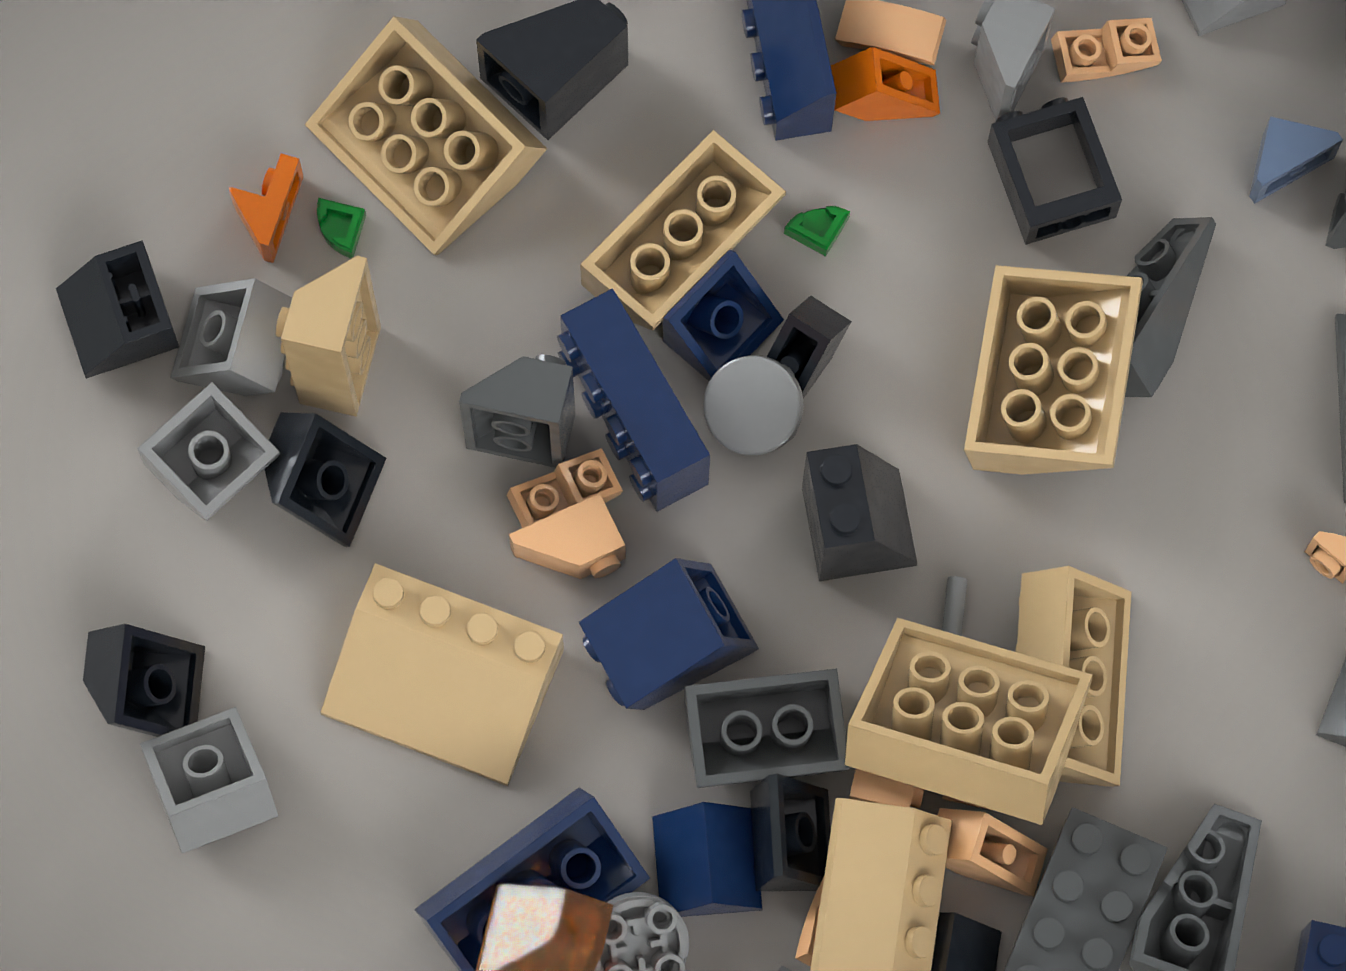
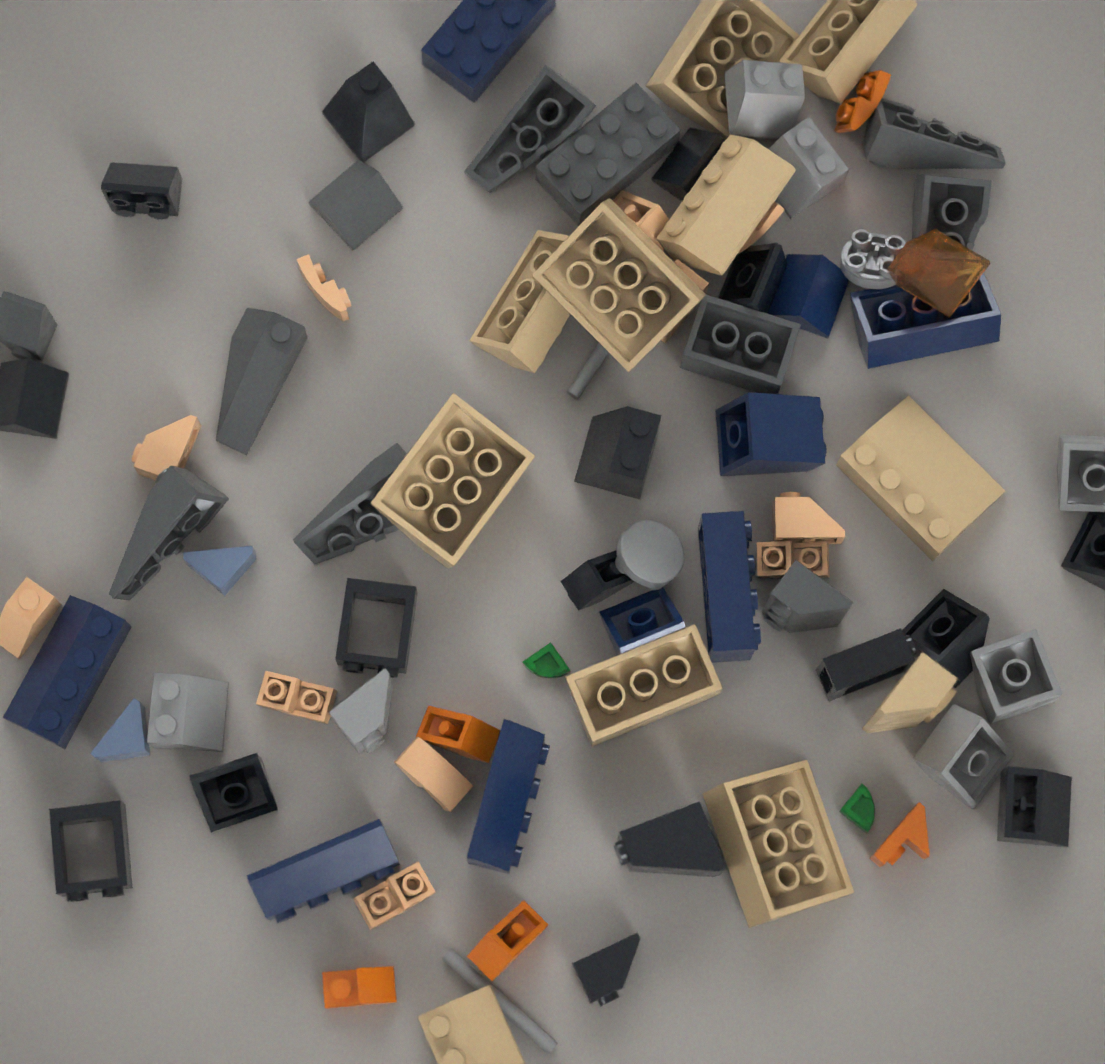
camera: 155 degrees left, 5 degrees up
(410, 382) = (866, 664): none -> black window

